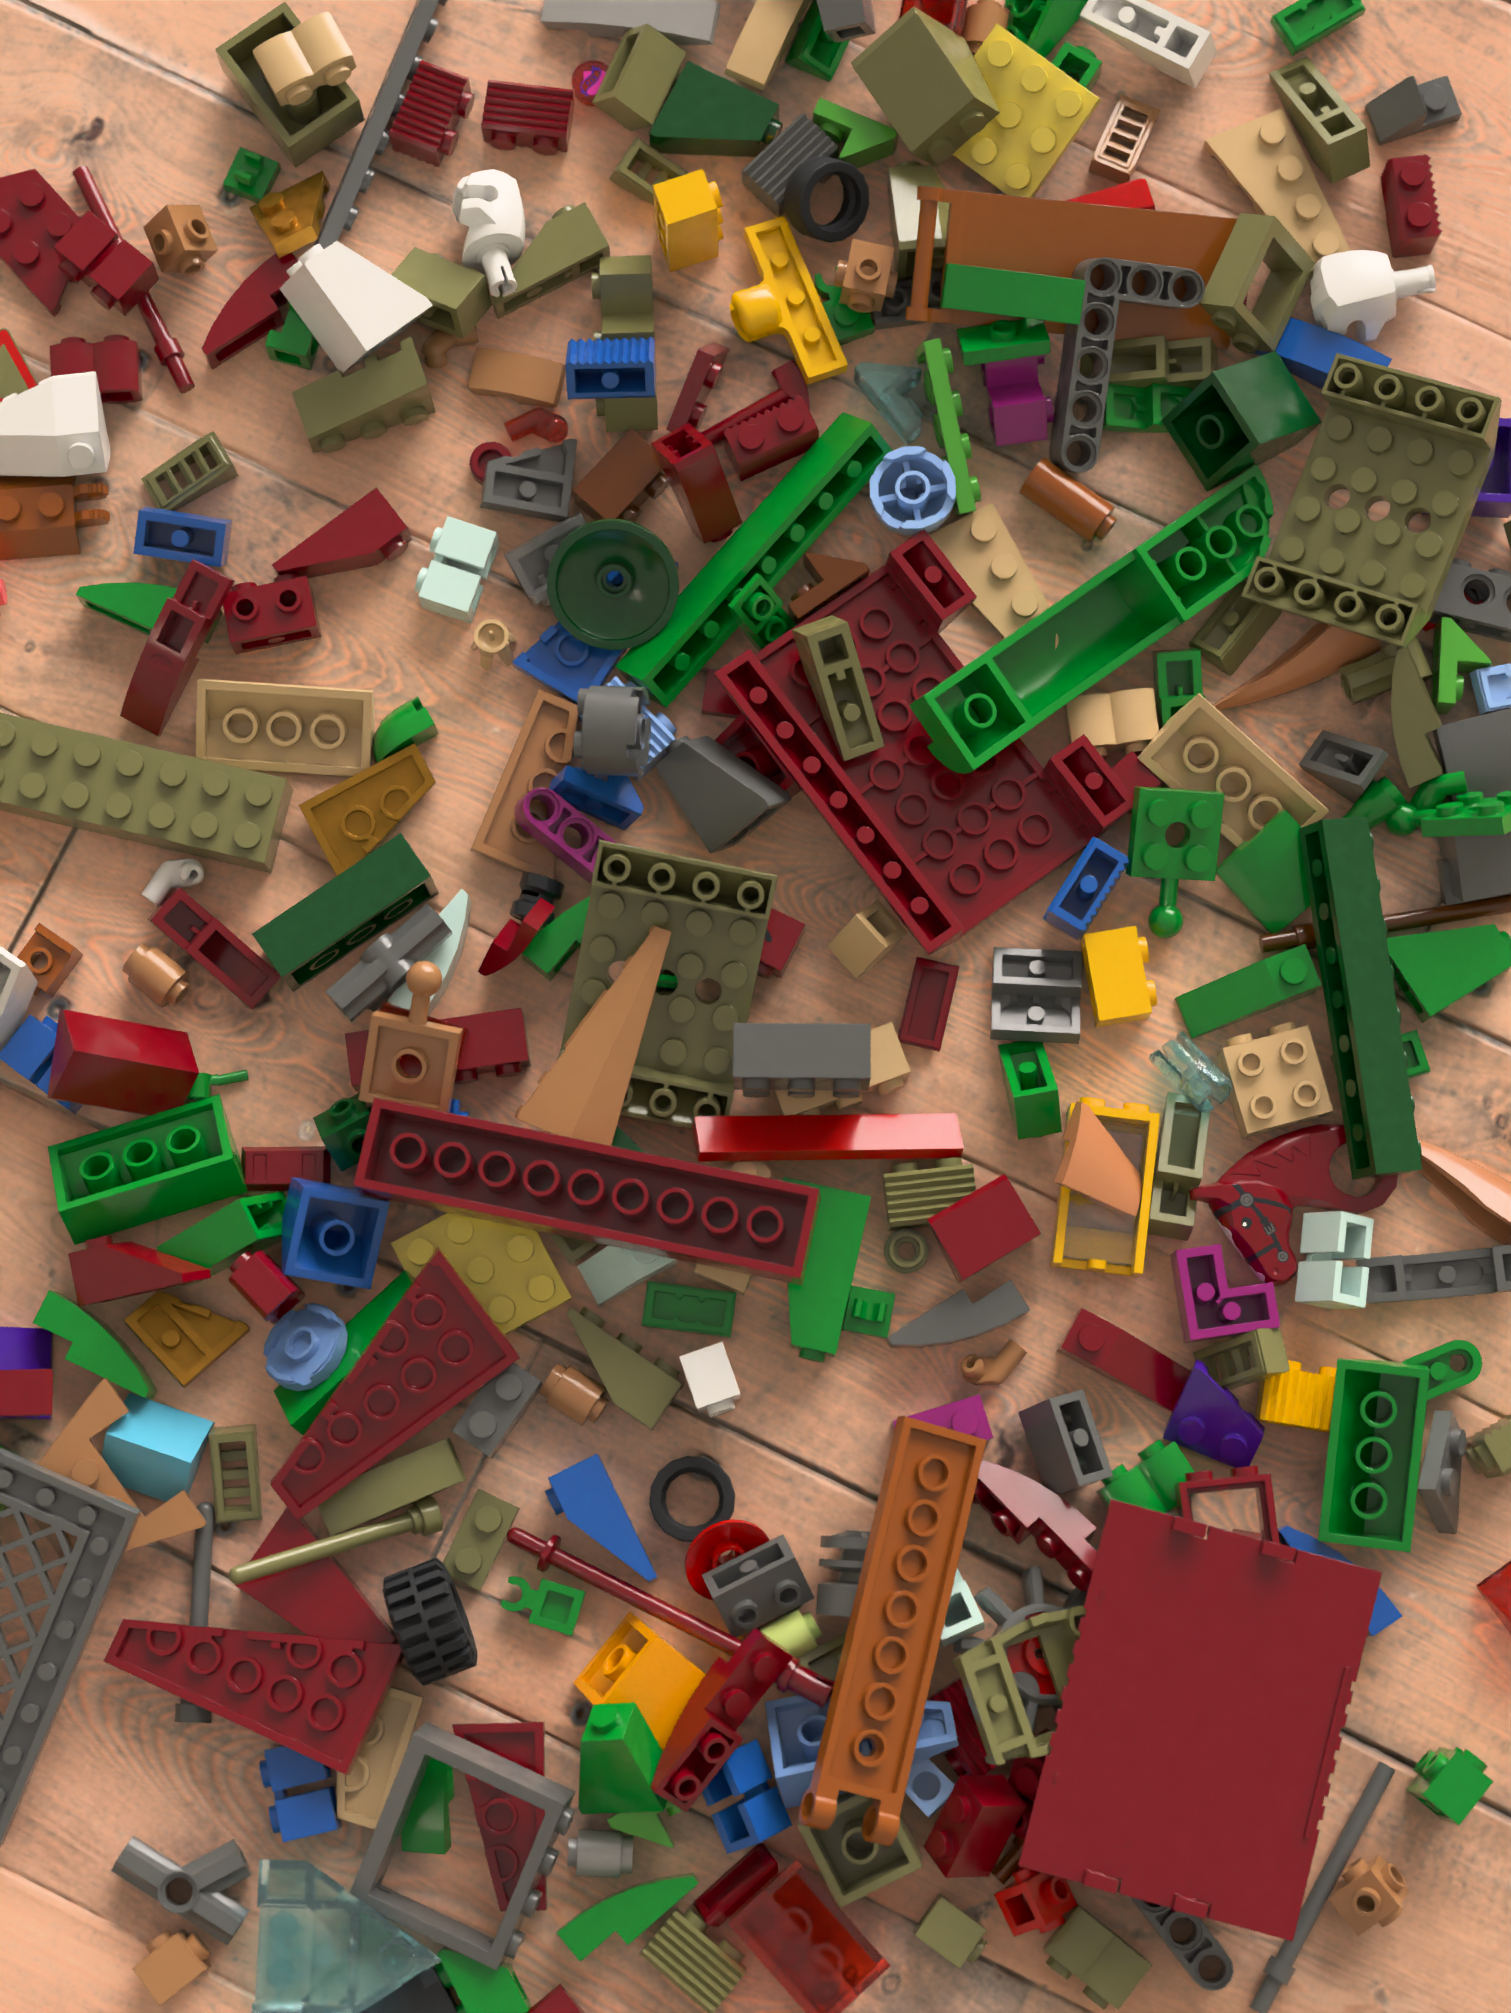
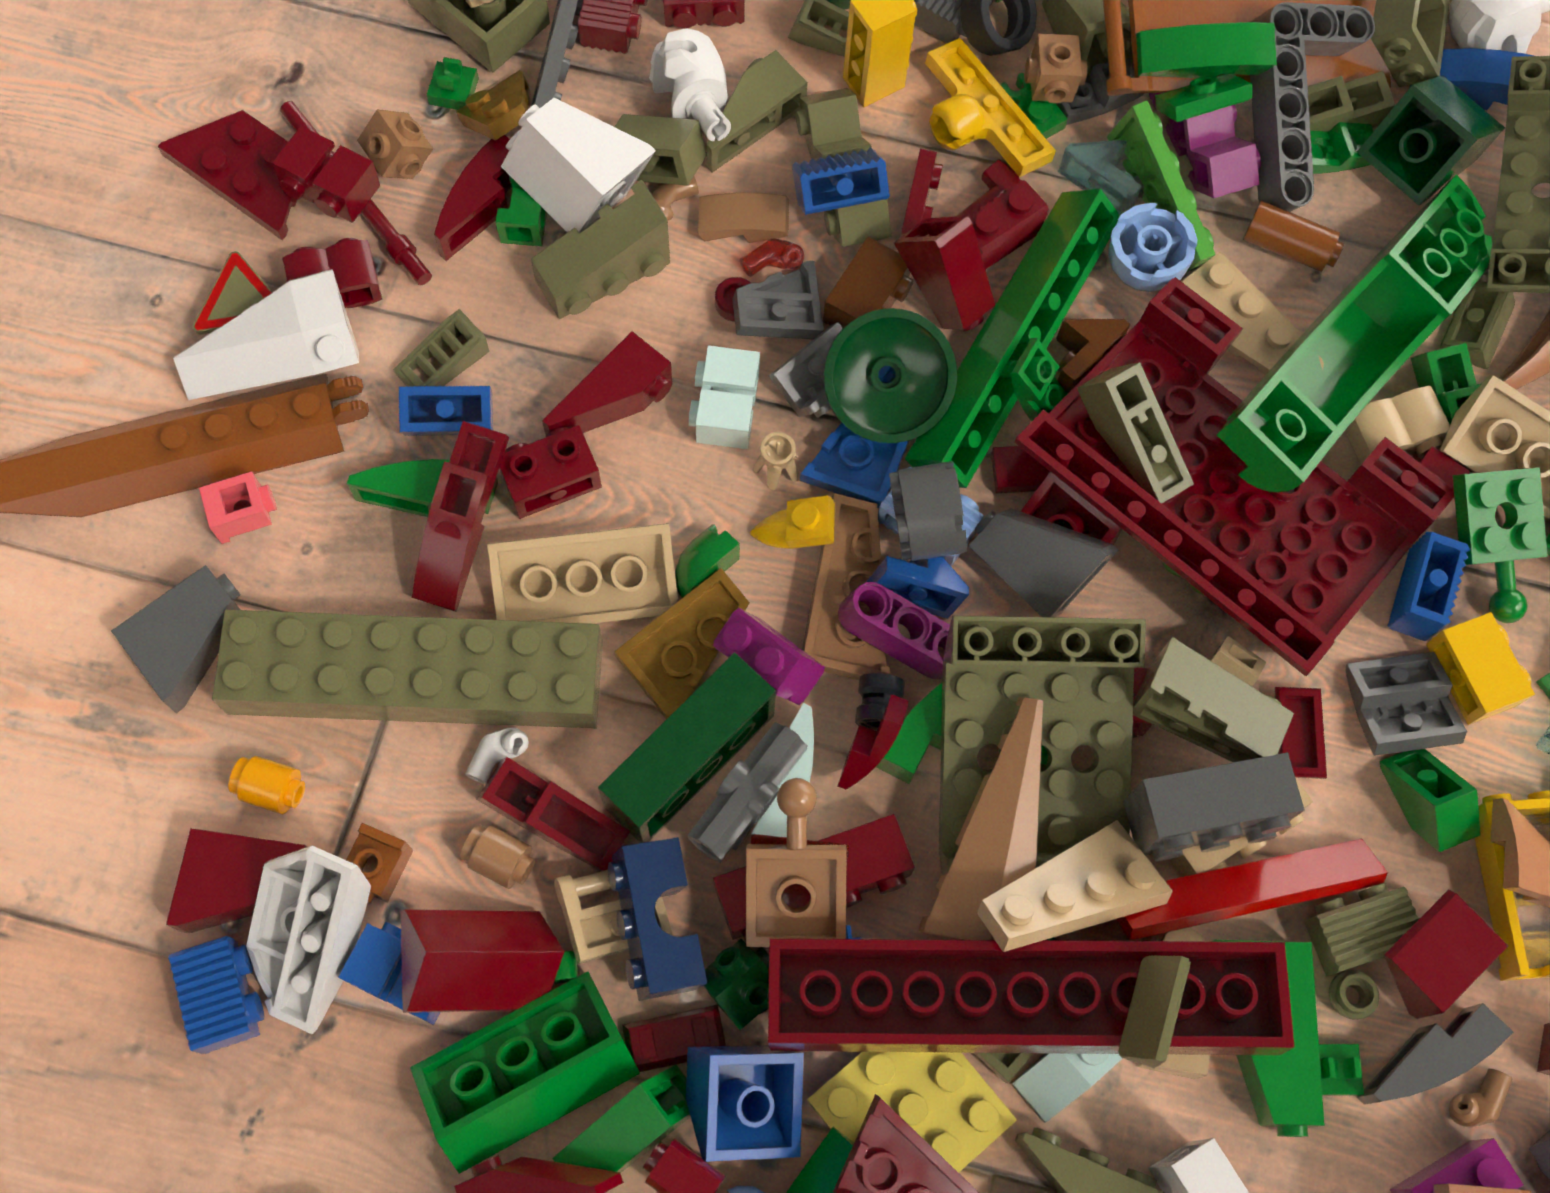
camera: 15 degrees left, 10 degrees down
(255, 1057) = (595, 929): none -> tan plate
(280, 1098) = (658, 961): none -> dark blue arch
(439, 838) = (770, 655): none -> magenta brick
(499, 713) = (802, 524): none -> yellow plate
(661, 1107) = (1075, 890): none -> tan wing
(686, 1222) = (1154, 1009): none -> olive slope
(689, 1309) = (1146, 1106): green plate -> none
(830, 966) = (1210, 706): none -> wedge

